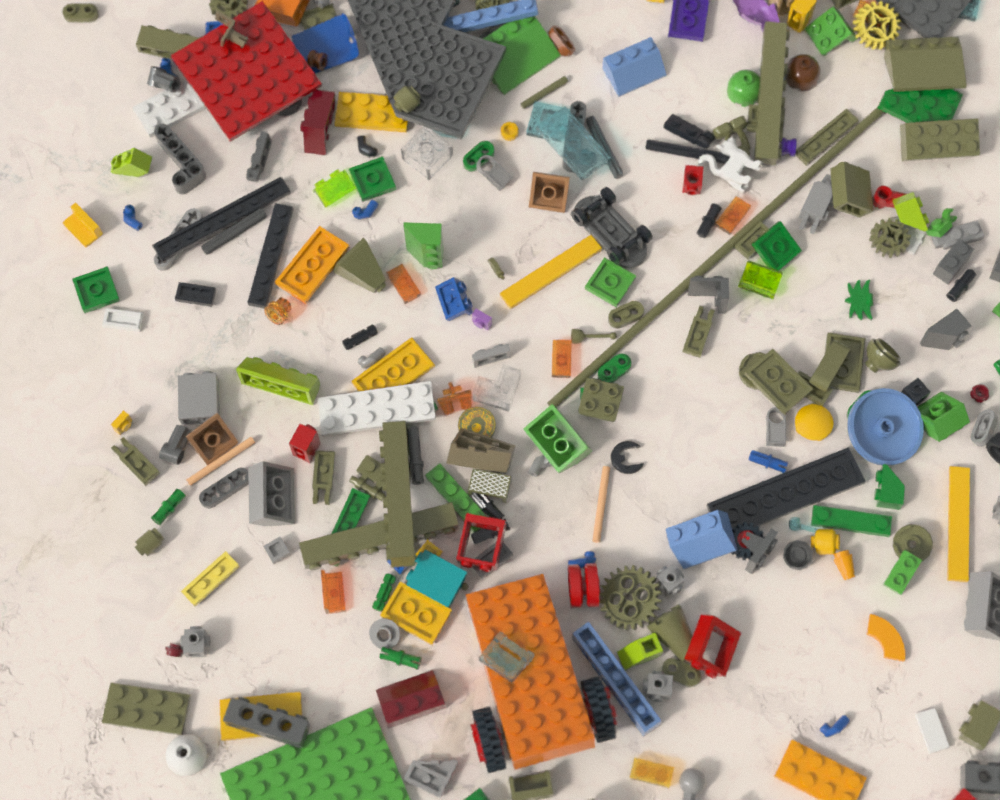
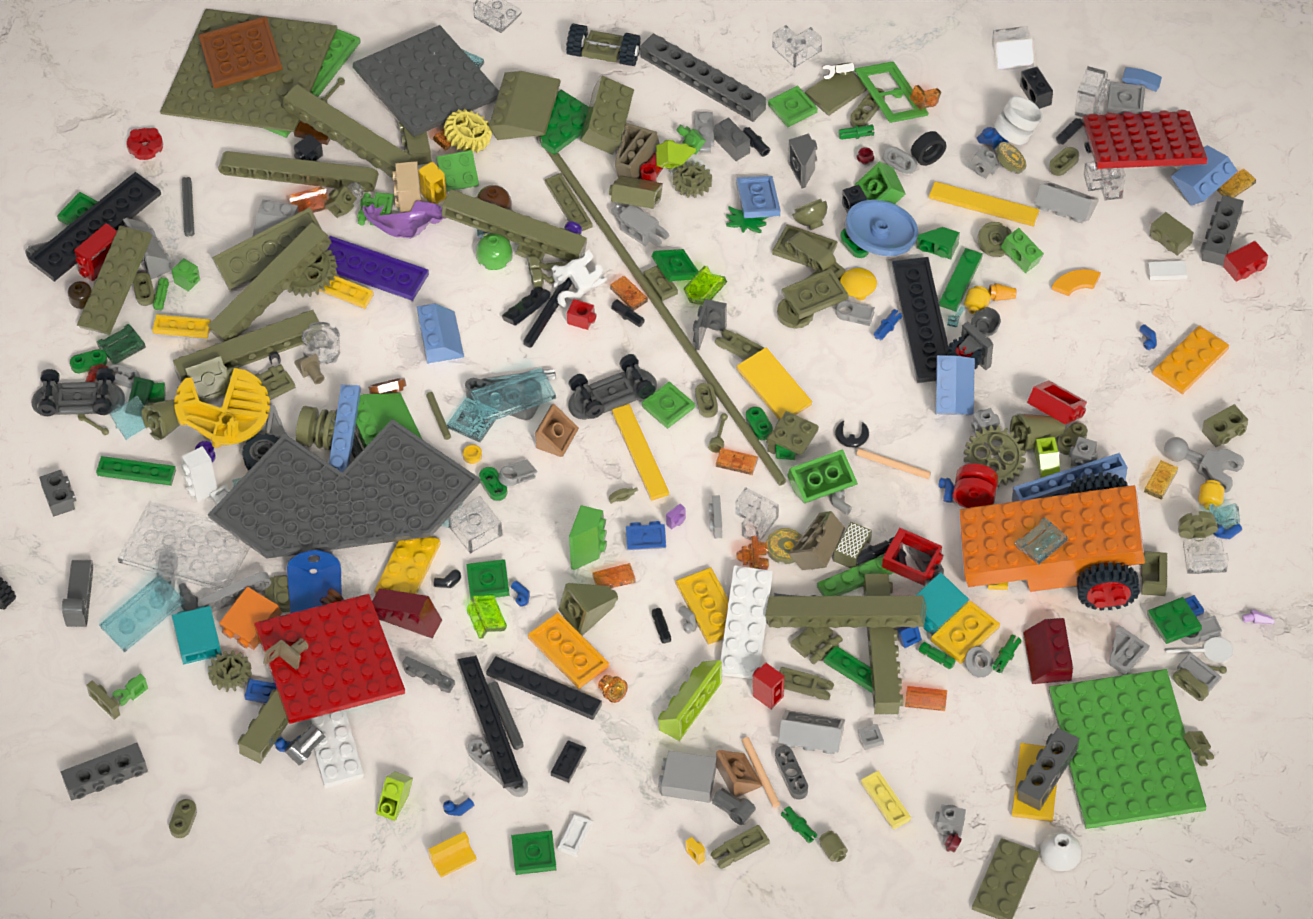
camera: 75 degrees left, 15 degrees down
(187, 167) = (373, 761): dark grey beam -> none
(407, 99) = (423, 513): olive head -> none
(660, 371) = (773, 384): none -> yellow tile
(887, 302) = (758, 196): none -> medium blue plate
(903, 175) = (636, 149): none -> dark tan wedge

